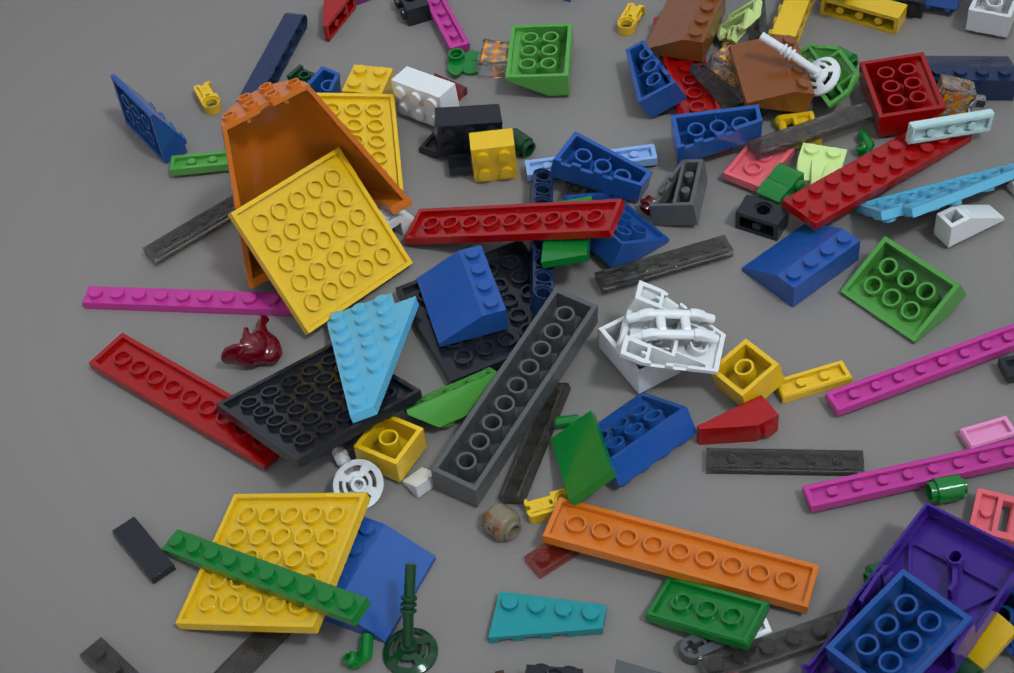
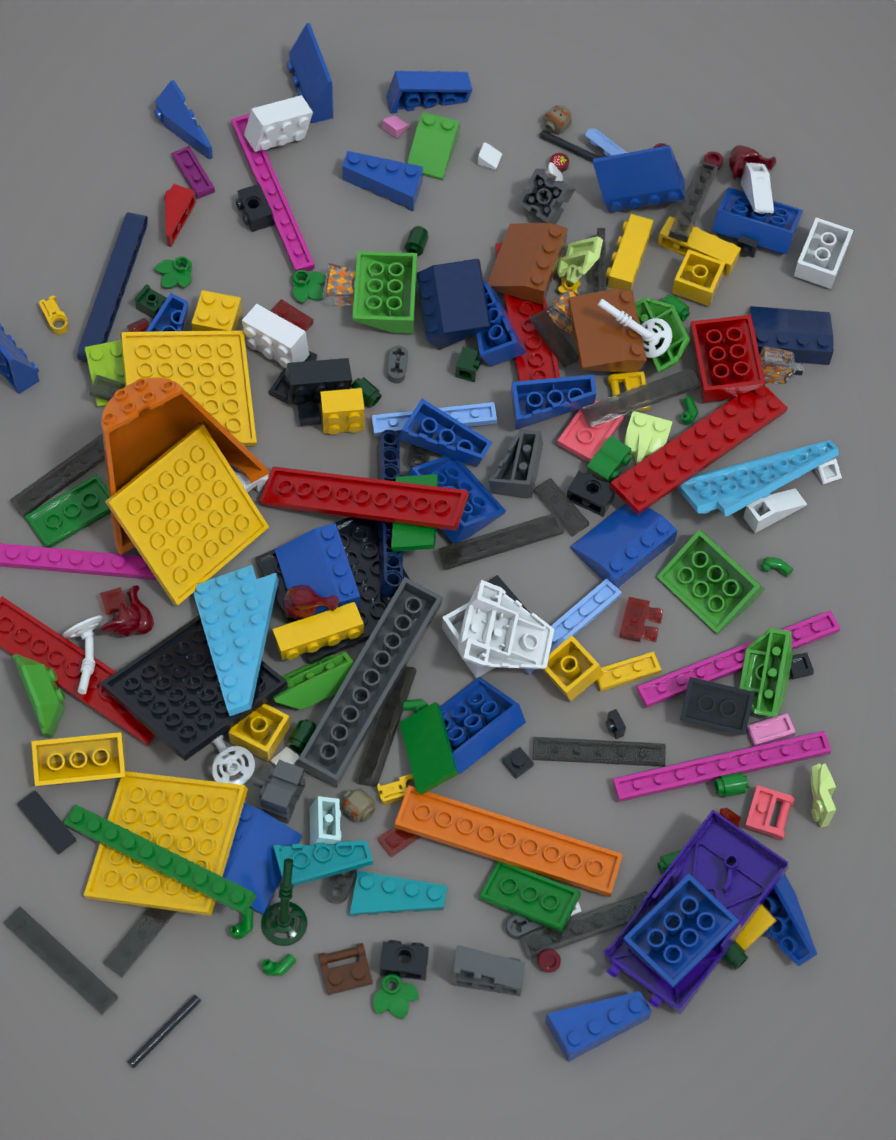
camera: 10 degrees left, 15 degrees up
(152, 418) = (42, 693): none -> bright green wedge
(184, 479) = (79, 759): none -> yellow slope
(198, 163) = (57, 398): bright green plate -> none
(202, 259) = (70, 512): none -> green tile
(206, 361) = (85, 630): none -> white dish
(236, 330) = (112, 599): none -> clear red plate
(331, 58) = (174, 274): none -> green plate
(413, 504) = (282, 791): none -> dark grey brick
(435, 451) = (301, 735): none -> dark green brick
(443, 315) = (303, 601): none -> dark red piece
(459, 577) = (323, 859): none -> teal wing
(460, 348) = (318, 631): none -> yellow brick
(461, 540) = (325, 821): none -> light aqua brick
(477, 605) = (342, 884): none -> clear smoke plate
(549, 119) = (402, 364): none -> dark grey beam
(576, 17) = (416, 240): none -> dark green brick
(609, 61) = (453, 302): none -> dark blue slope
(625, 115) = (468, 364): none -> dark green brick
(631, 17) = (473, 239): yellow piece -> none
(645, 204) = (487, 472): dark red plate -> none
(662, 332) = (500, 634): white piece -> none
(689, 475) = (518, 762): none -> black plate
(721, 224) = (558, 502): none -> clear smoke tile
(741, 424) = (564, 715): red slope -> none
(753, 329) = (583, 613): none -> light blue plate
(802, 431) = (615, 724): none -> black plate
(818, 330) = (634, 620): none -> clear red plate
(865, 31) = (698, 277): none -> yellow brick
(921, 405) = (717, 705): none -> black brick
(949, 126) = (767, 403): light aqua tile -> none
(977, 273) = (777, 563): none -> green arm
(977, 369) = (768, 671): none -> bright green wedge

